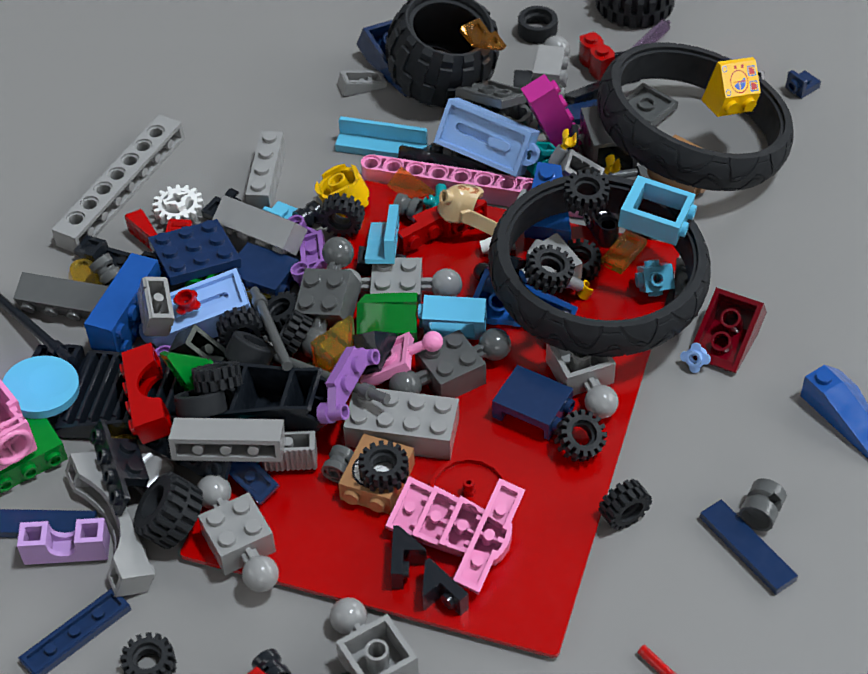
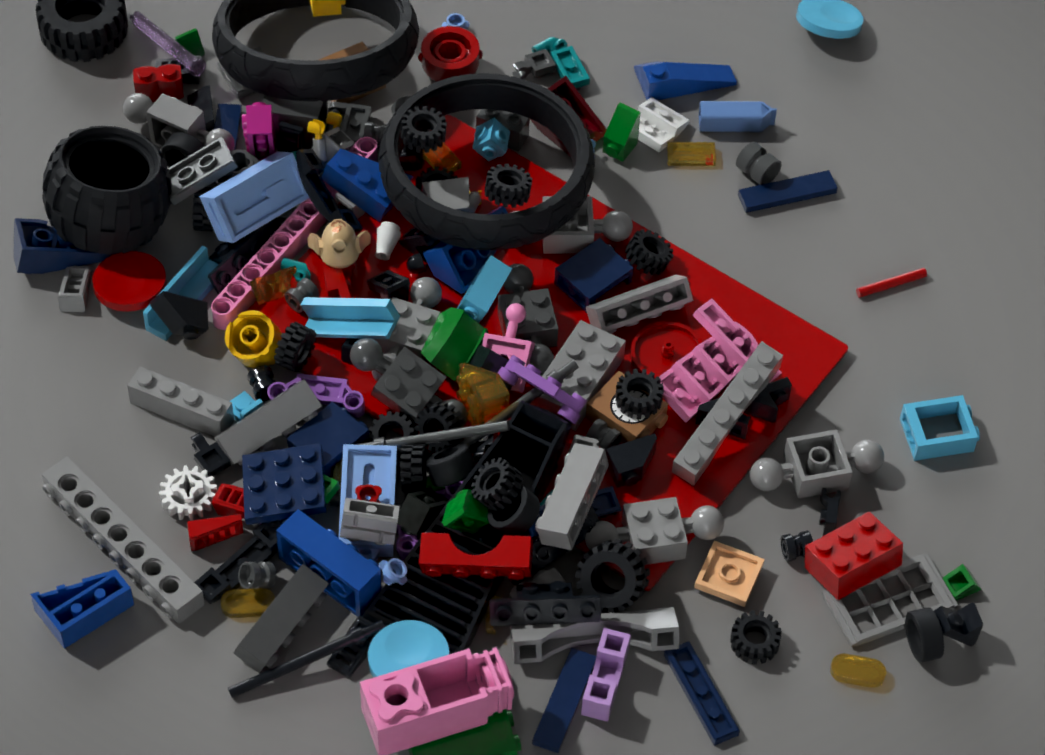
camera: 75 degrees left, 5 degrees up
(43, 178) = (84, 606): none -> blue wedge
(113, 345) = (393, 571): none -> light blue plate
(219, 618) = (729, 573): none -> light nougat plate
(317, 494) = (630, 460): none -> black slope
(350, 142) = (182, 314): none -> black slope
(377, 103) = (128, 280): none -> red piece
(440, 257) = (390, 285): none -> black slope
(442, 554) = (715, 427): none -> light grey arch
(480, 37) = (143, 143): clear orange slope -> none
(510, 446) = (640, 303): none -> light grey brick
(515, 177) = (309, 170): none -> black slope
(537, 14) = (73, 100): black tyre -> none
(625, 504) = (728, 248): black tyre -> none
(652, 225) = (457, 104): medium azure window -> none
(728, 376) = (622, 132): none -> green slope
(747, 222) = (449, 53): none -> red piece
(750, 448) = (691, 154): none -> clear yellow tile
(770, 407) = (659, 124): none -> white slope
(785, 292) = (535, 63): none -> dark grey plate
(797, 221) = (456, 20): none -> light blue plate
(798, 318) = (569, 65): none -> teal plate
(818, 467) = (735, 116): none -> medium blue piece
(820, 297) = (550, 44): none -> teal arm

